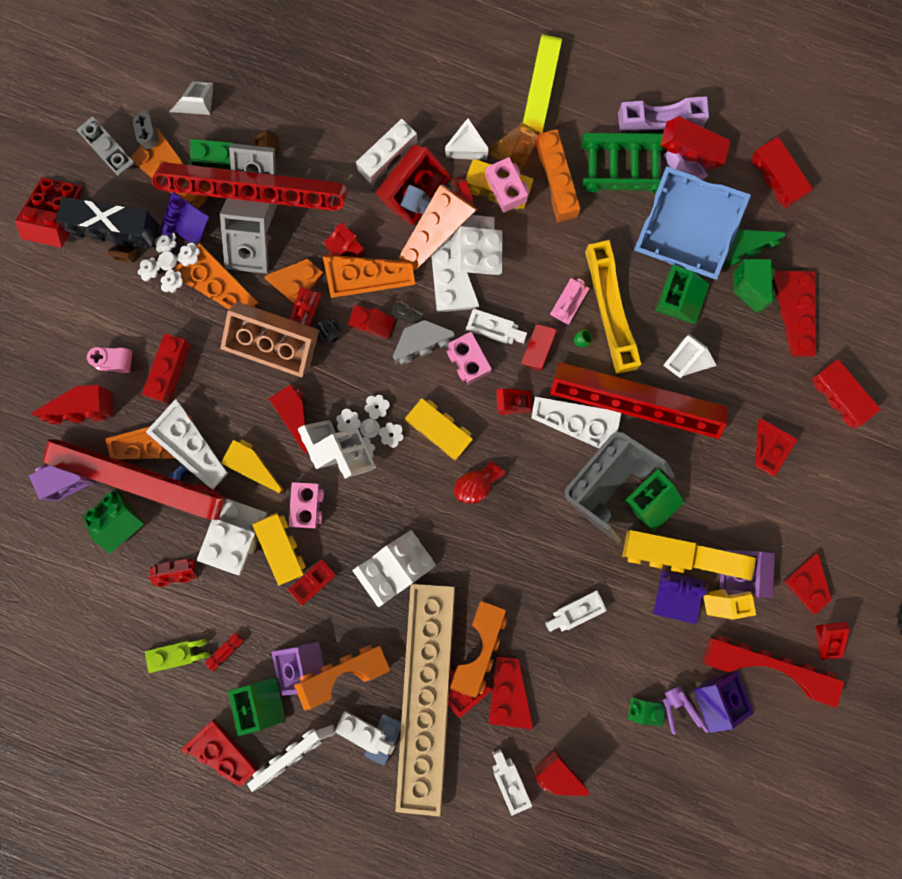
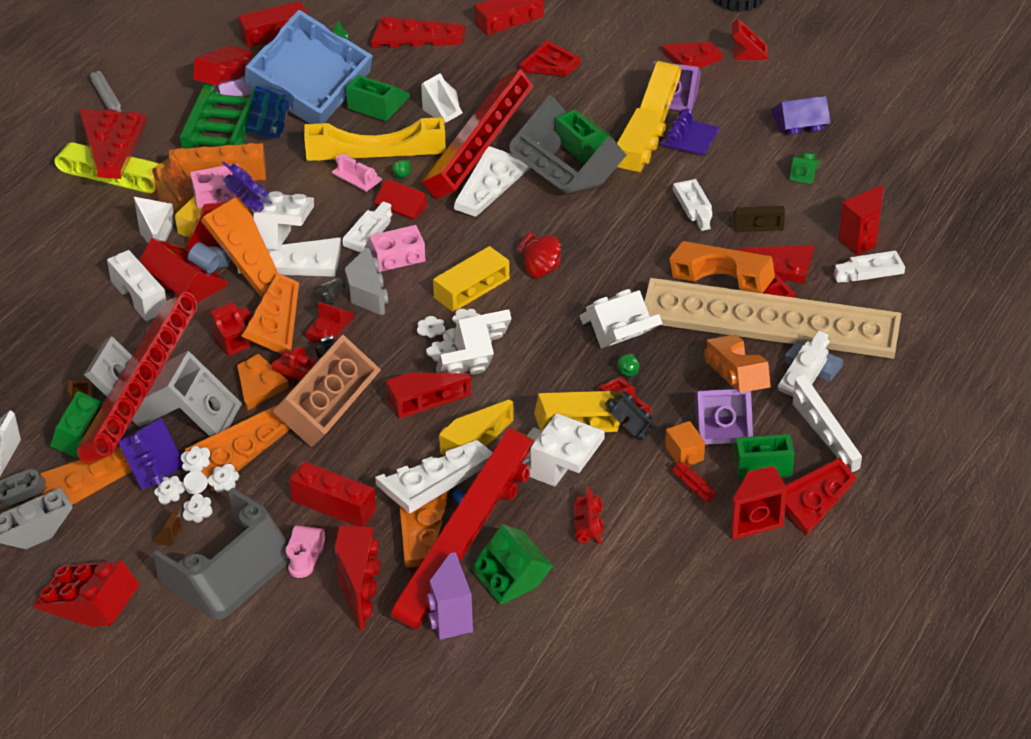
camera: 80 degrees left, 40 degrees down
(104, 330) = (236, 571): none -> dark grey windscreen
(107, 223) = (130, 517): black brick -> none
(174, 655) = (691, 528): lime hinge -> none
(187, 708) = (758, 503): none -> red slope
(259, 641) = (685, 444): none -> orange brick
(279, 591) = (638, 419): none -> black hinge
(299, 505) = (523, 388): bright pink brick -> none
(350, 581) = (628, 365): none -> green hinge
(469, 212) = (243, 186): none -> dark purple hinge
(514, 401) = (455, 224): red slope -> none
(567, 673) = (759, 218): none -> dark brown panel
(578, 73) = (111, 139): none -> red wing
(629, 202) = (268, 112): none -> clear blue piece
(640, 117) = (178, 101): lavender arch -> none
(652, 49) = (105, 91): none -> light grey axle
(678, 698) = (794, 143): medium lavender plant -> none
(732, 606) = (704, 95): yellow slope -> none
(754, 283) = (386, 42): green slope -> none
(818, 687) = (791, 58): red arch -> none

